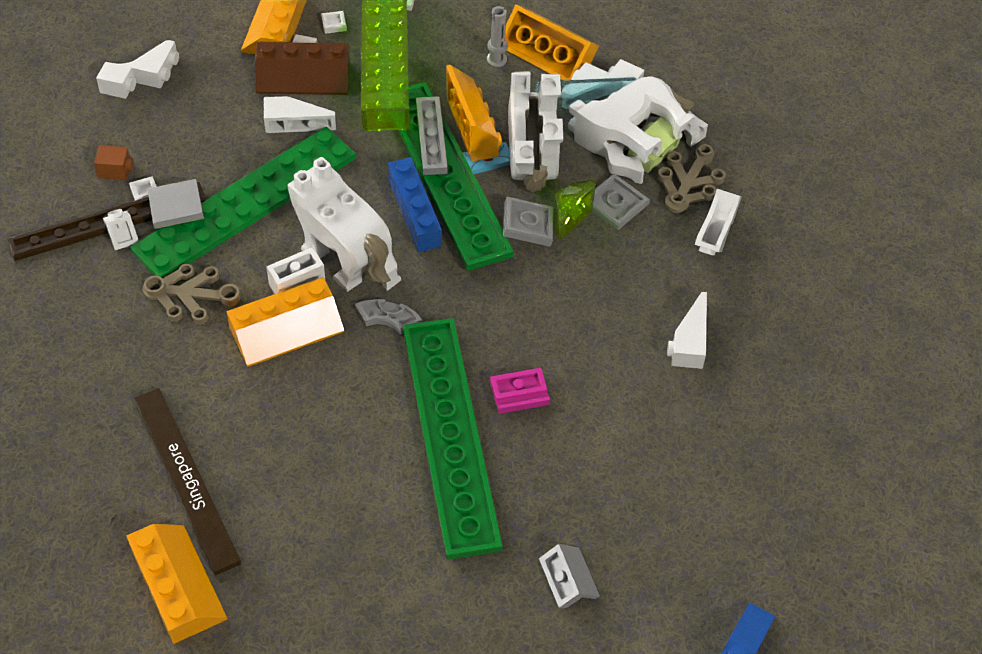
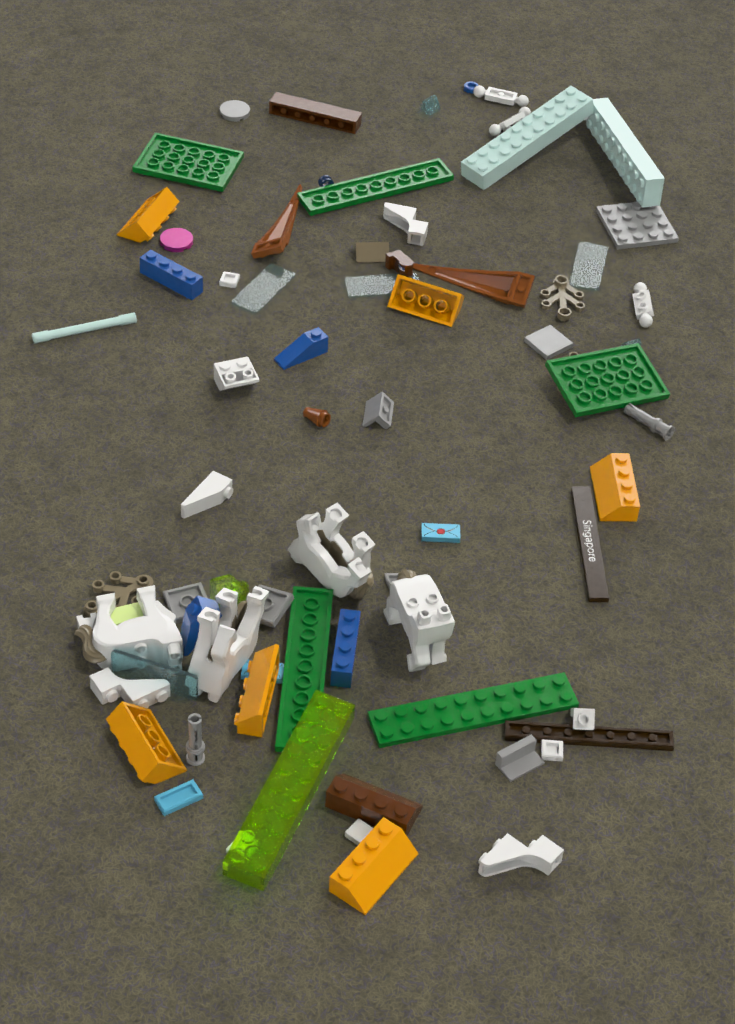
camera: 155 degrees left, 10 degrees down
(113, 162) = (571, 775): dark orange brick -> none
(175, 203) = (533, 714): light grey tile -> none
(176, 164) = (518, 758): none -> light grey panel
(188, 291) = (565, 664): dark tan plant -> none
(285, 321) = (486, 608): slope -> none
(293, 115) = (405, 761): white slope -> none
(295, 271) = (468, 626): white brick -> none
(334, 22) = (319, 849): white tile -> none
(385, 410) = (440, 532): none -> medium azure tile
(431, 135) = (302, 687): light grey plate -> none
(451, 440) = (406, 503): green plate -> none
(481, 22) = (178, 797): none -> medium azure tile
(485, 283) = (330, 556): none -> white piece
(519, 390) = (353, 506): dark pink plate -> none
(578, 136) = (190, 625): none -> blue slope
(644, 524) = (317, 416): none -> dark orange cone
(718, 222) = (139, 542): white arch -> none
(792, 532) = (234, 373): none -> white slope

